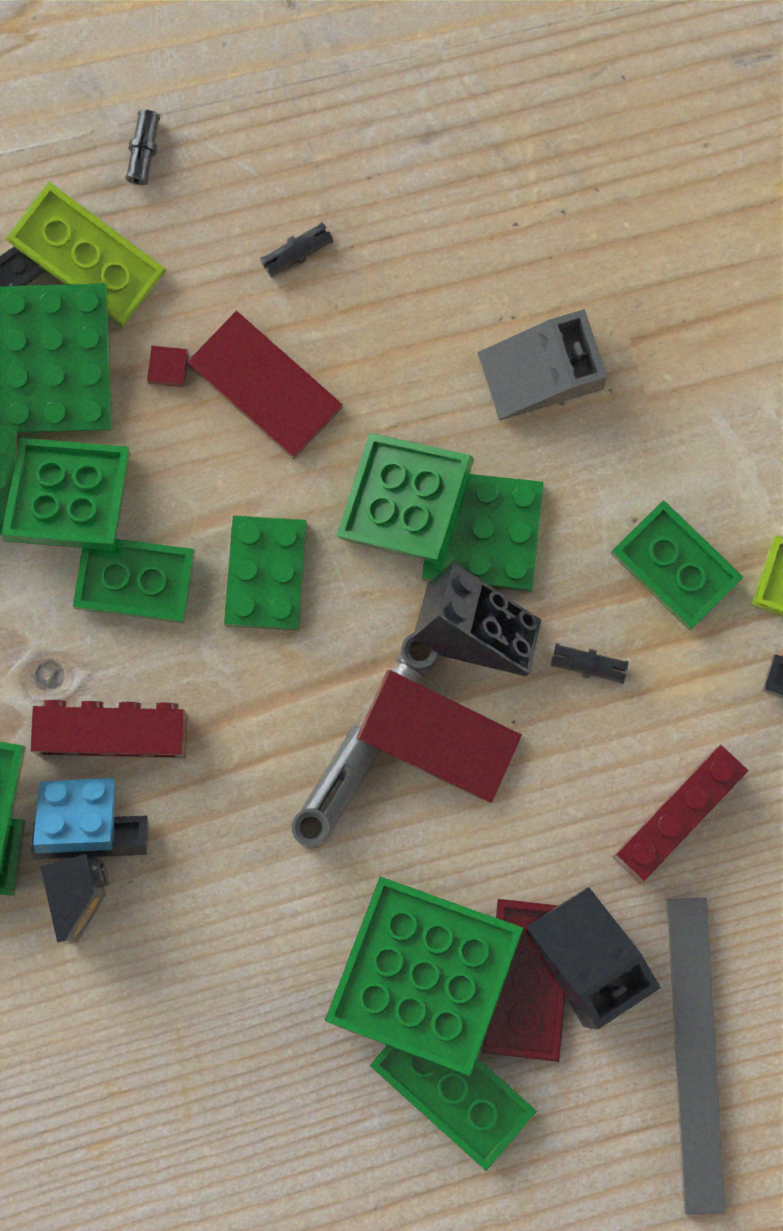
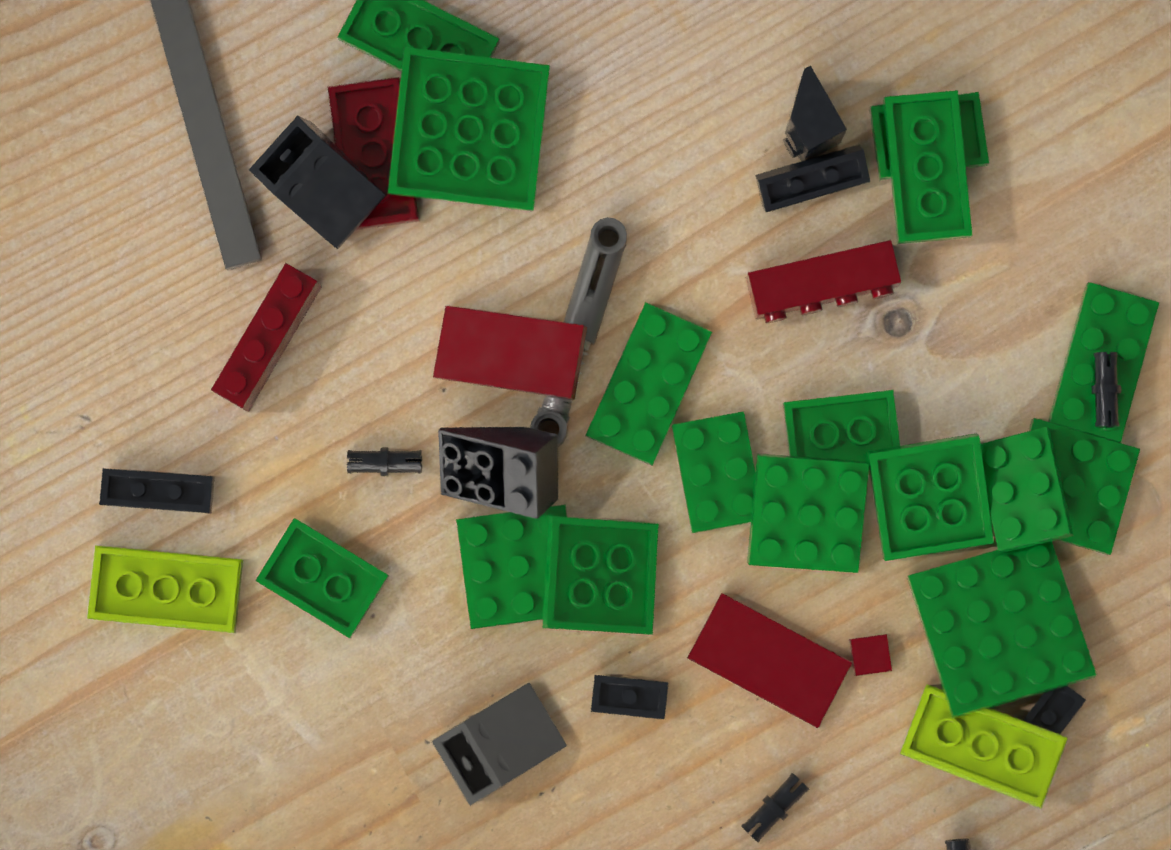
camera: 165 degrees right, 5 degrees up
(75, 815) = (832, 193): dark azure plate -> none
(189, 508) = (807, 513): none -> green plate
(309, 675) = (648, 384): none -> green plate
(406, 381) = (629, 697): none -> black plate

